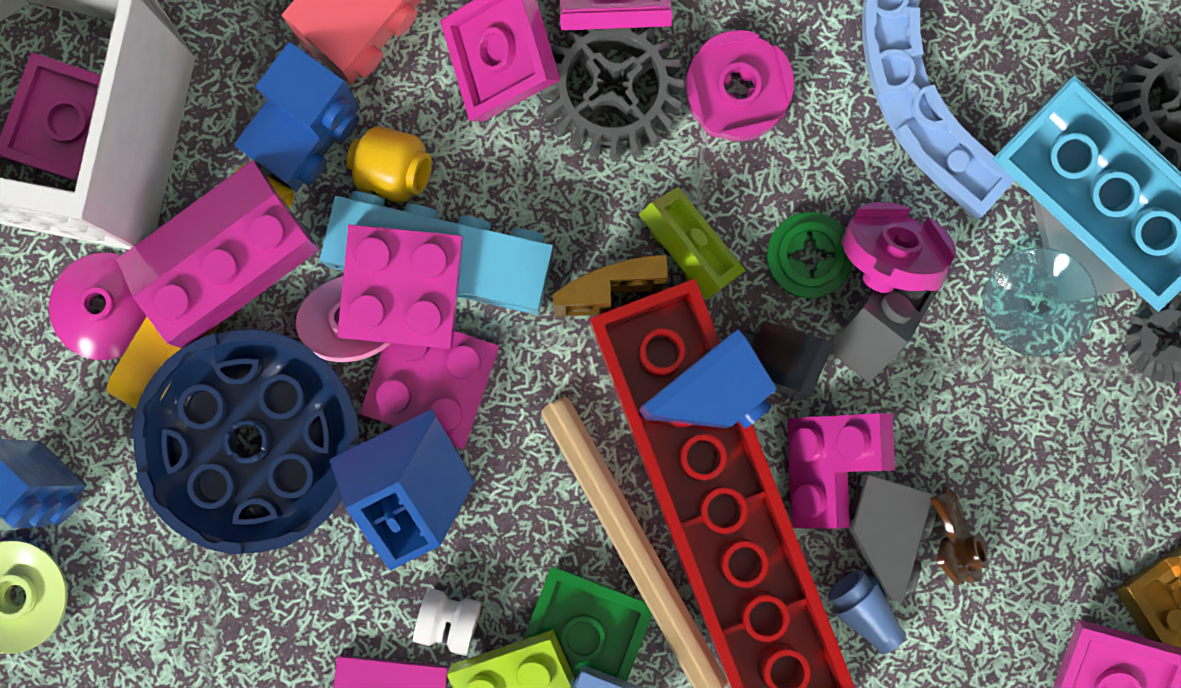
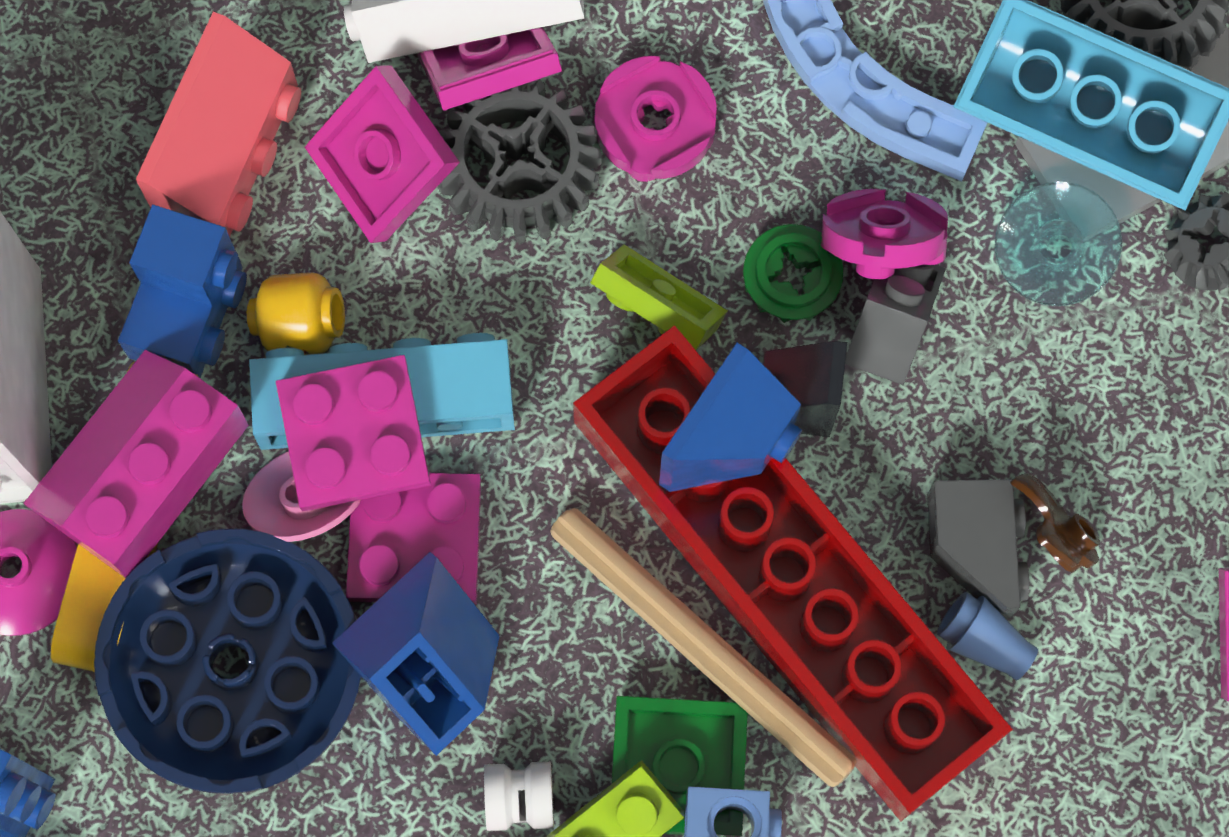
camera: 15 degrees left, 10 degrees down
(593, 291) = (579, 360): pearl gold slope -> none
(823, 454) = (879, 477): dark pink plate -> none

